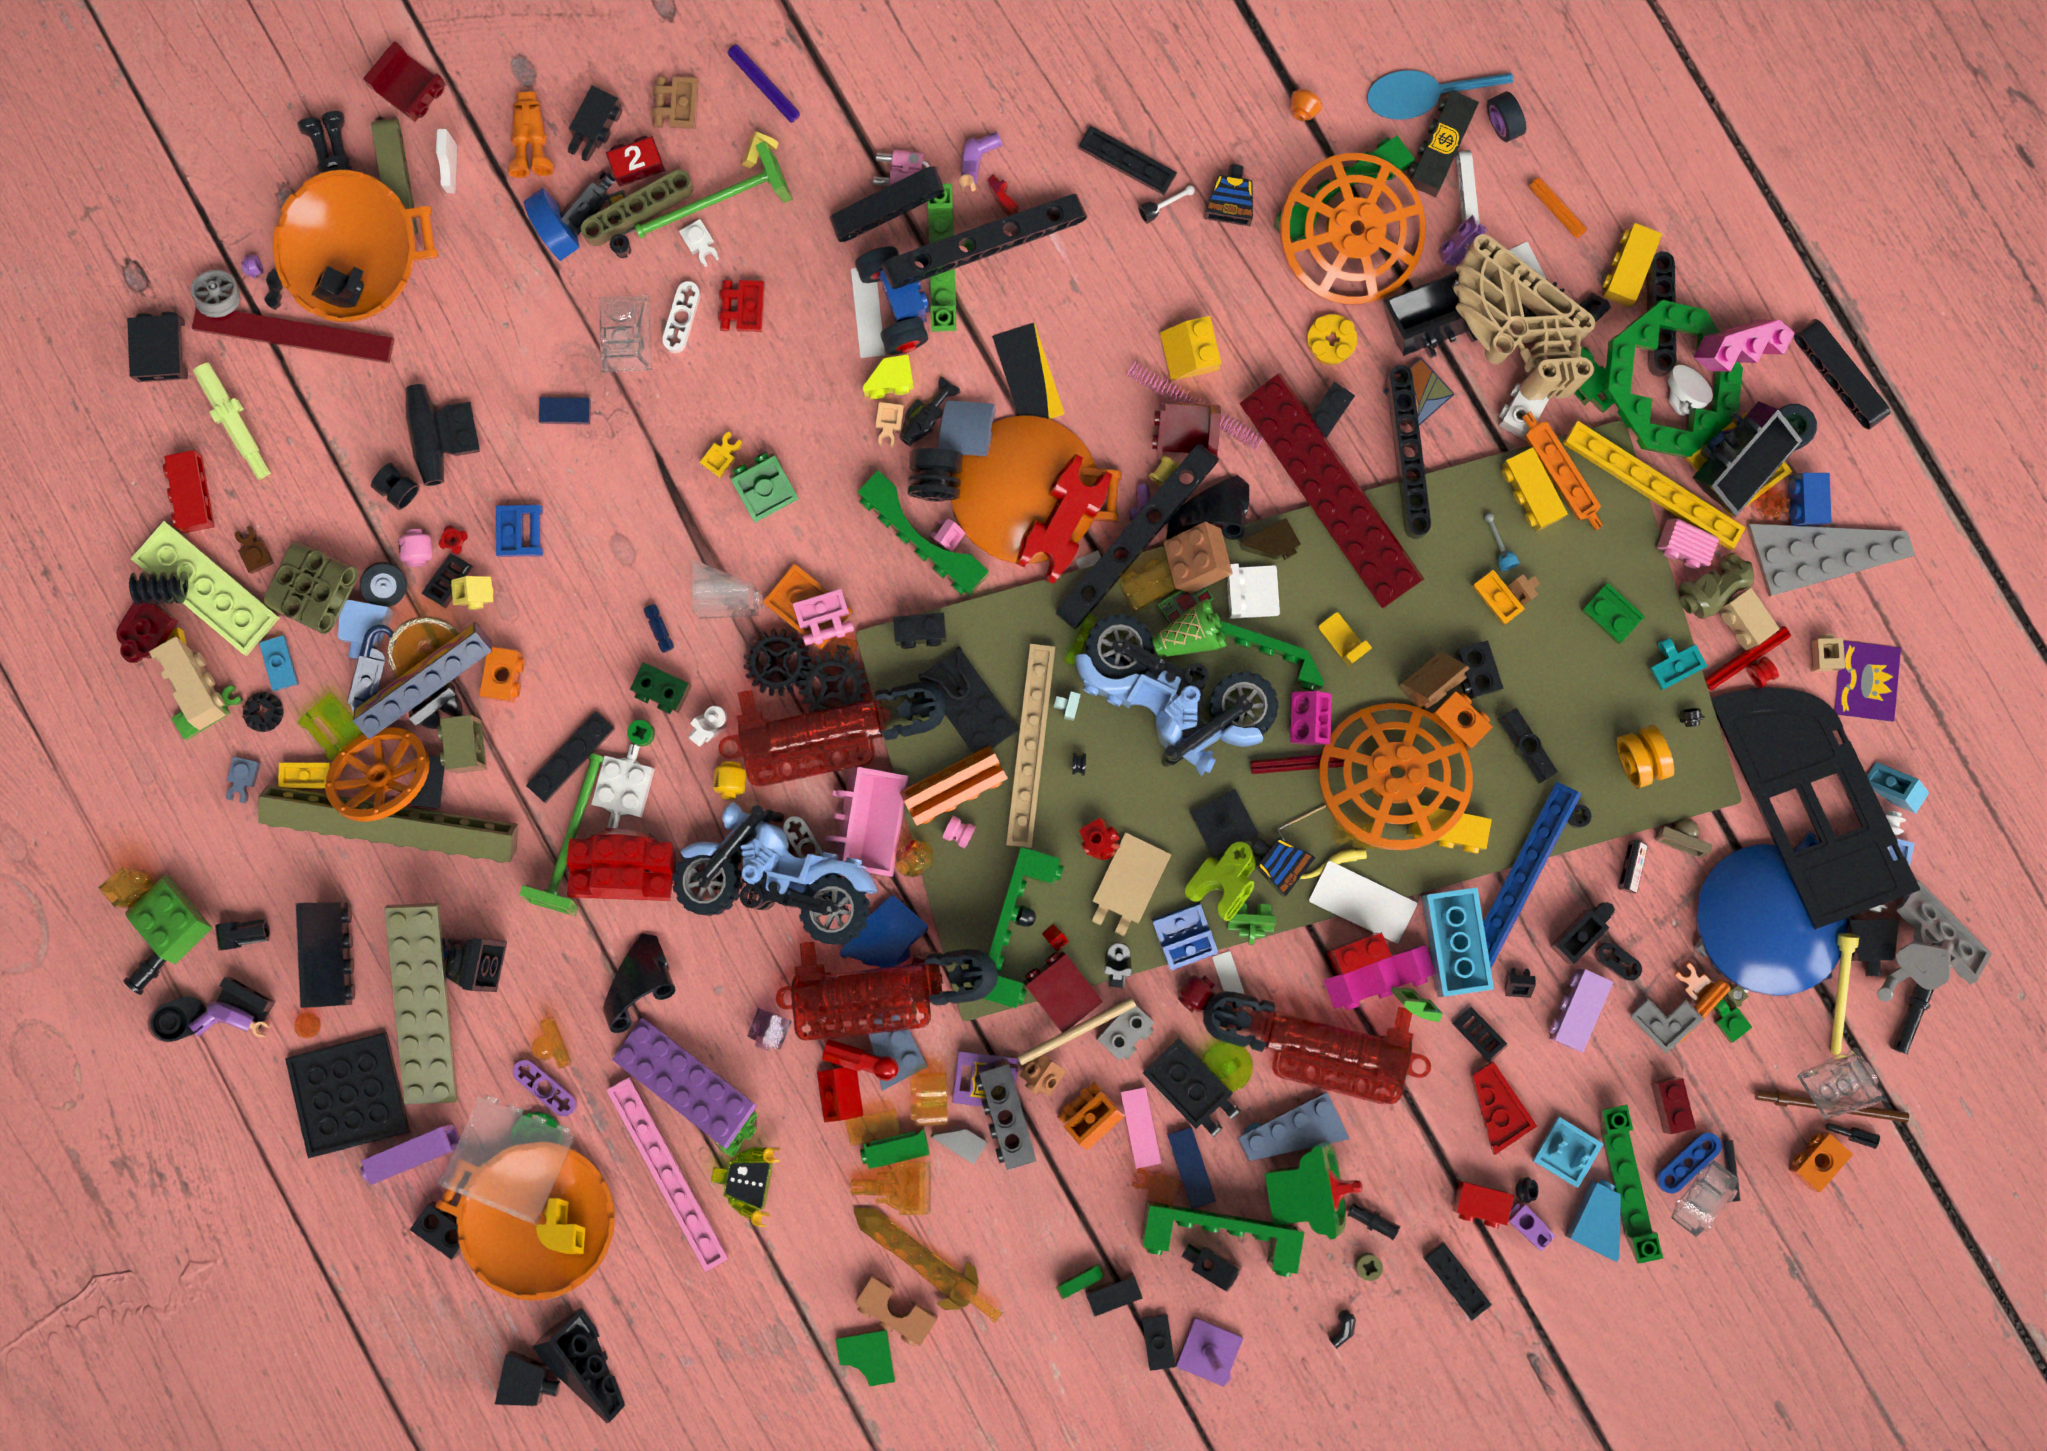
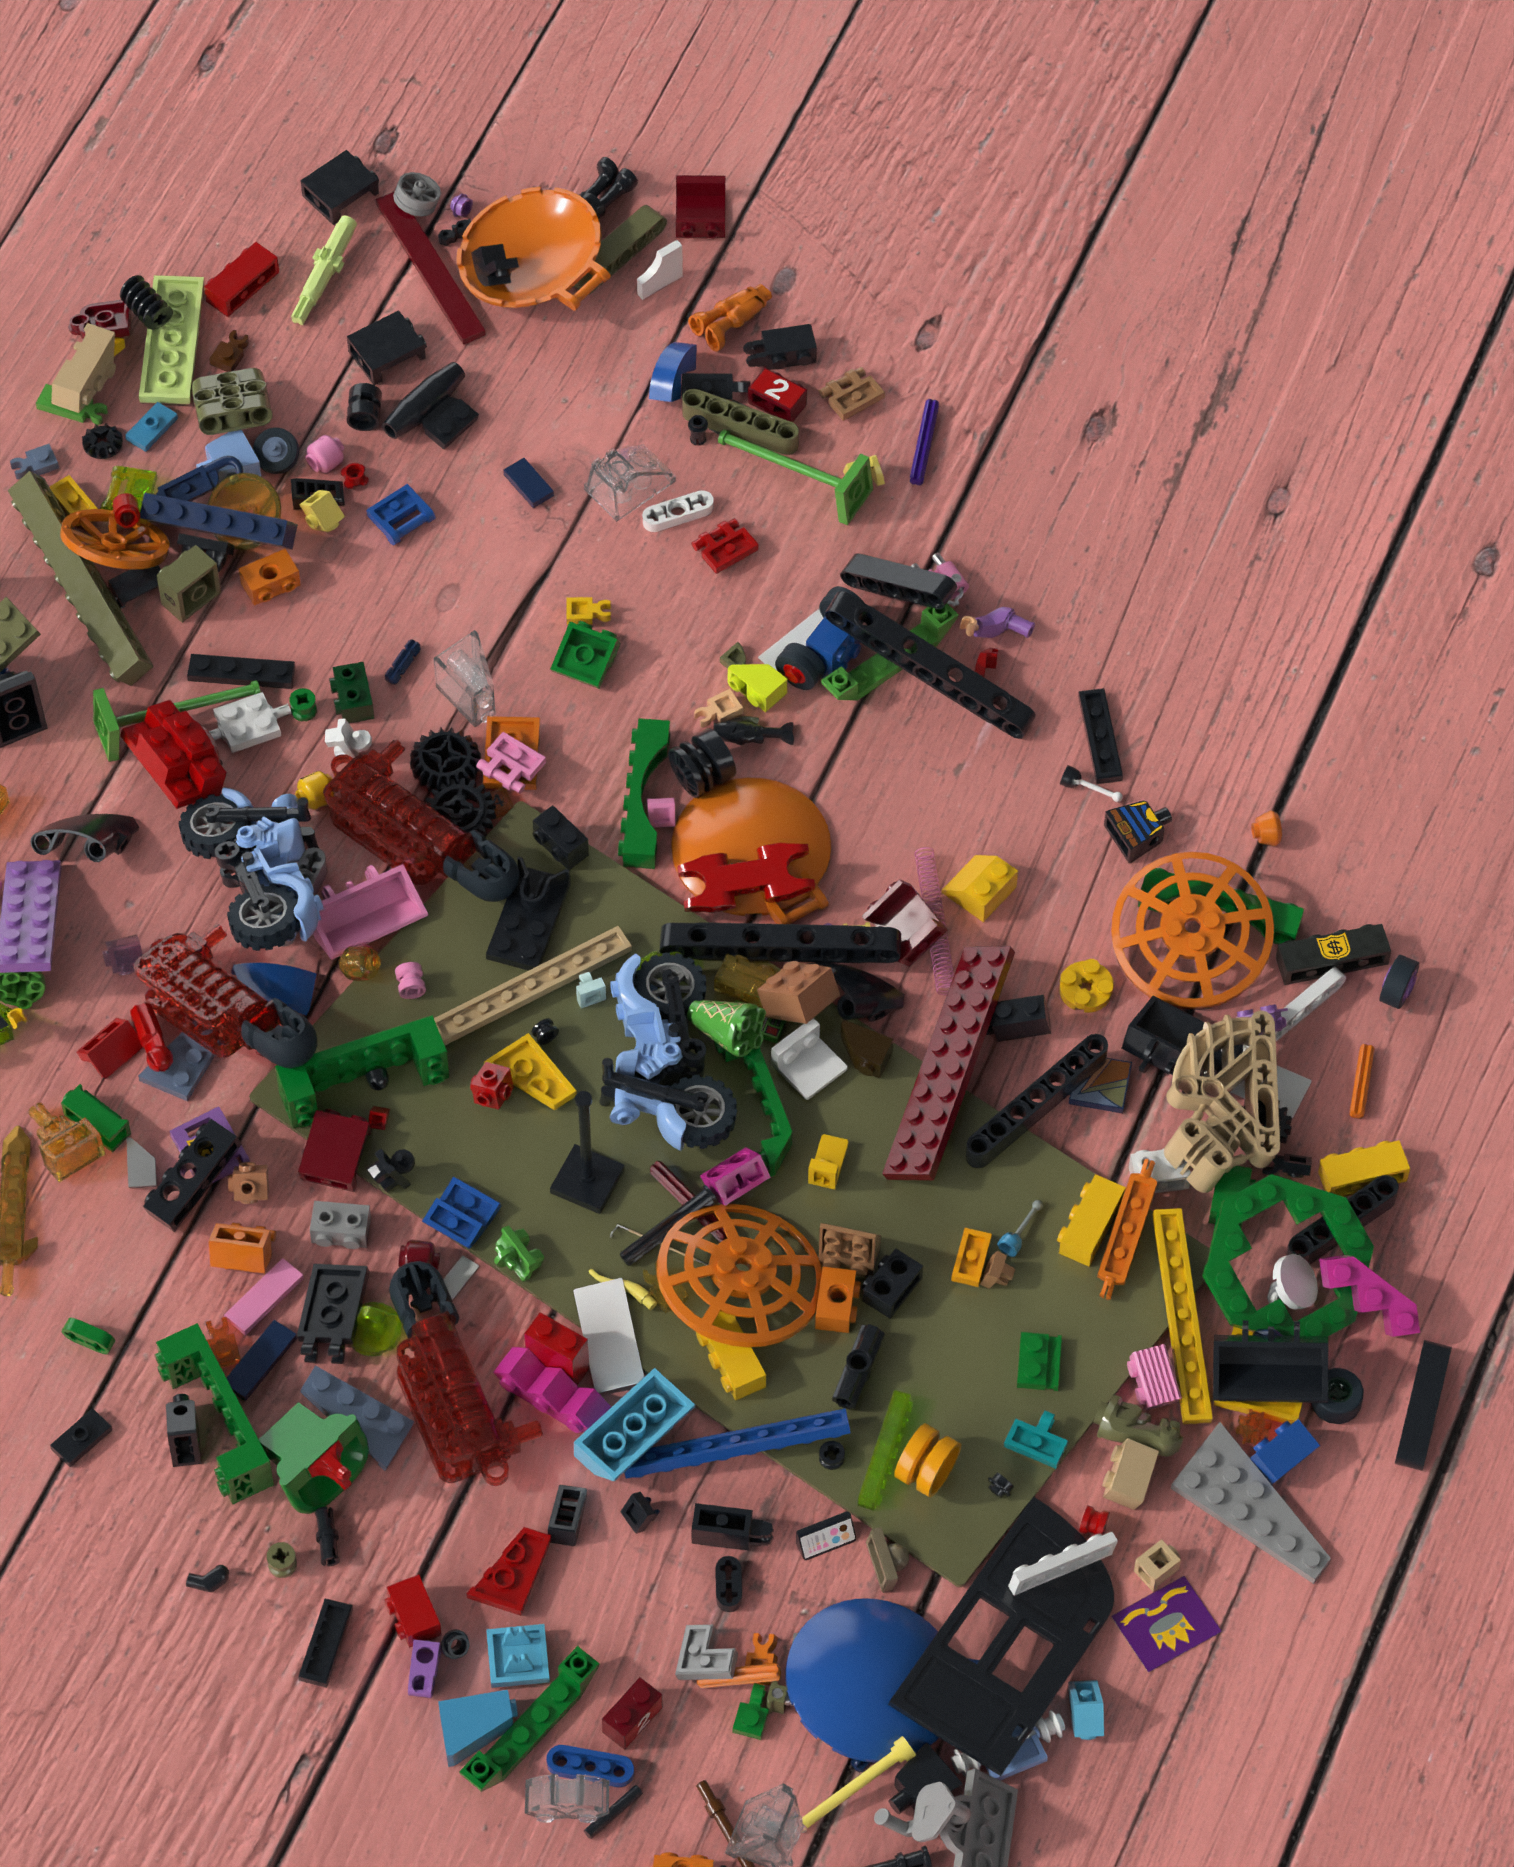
camera: 55 degrees right, 25 degrees down
(347, 425) = (385, 345): none -> black panel
(356, 745) = (126, 510): none -> red brick
(697, 240) = (752, 481): white plate -> none
(850, 376) = (733, 656): none -> olive tile
(873, 1127) = (102, 1087): clear yellow plate -> none
(931, 1099) = (160, 1115): clear yellow brick -> none
(953, 785) = (446, 947): orange brick -> none
(967, 427) = (764, 763): sand blue slope -> none
(1028, 373) = (854, 784): black sticker -> none
(1076, 1031) = (308, 1178): tan piece -> none
(1106, 798) = (535, 1072): none -> yellow wing
(1113, 1294) = (97, 1370): black panel -> none
(1129, 881) = (472, 1140): tan tile -> none
(1209, 1352) = (104, 1481): medium lavender tile -> none
(1226, 875) = (535, 1204): lime piece -> none
(1281, 863) = (587, 1243): torso -> none
(1313, 791) = (658, 1232): none -> black axle
(1414, 93) = (1357, 904): dark azure piece -> none
(1415, 1004) = (547, 1423): bright green slope -> none
(1580, 1010) = (657, 1577): lavender brick -> none
(1603, 776) = (885, 1450): none -> clear neon green piece
(1746, 658) = (1083, 1498): red axle -> none
(1784, 729) = (1070, 1559): none -> white plate

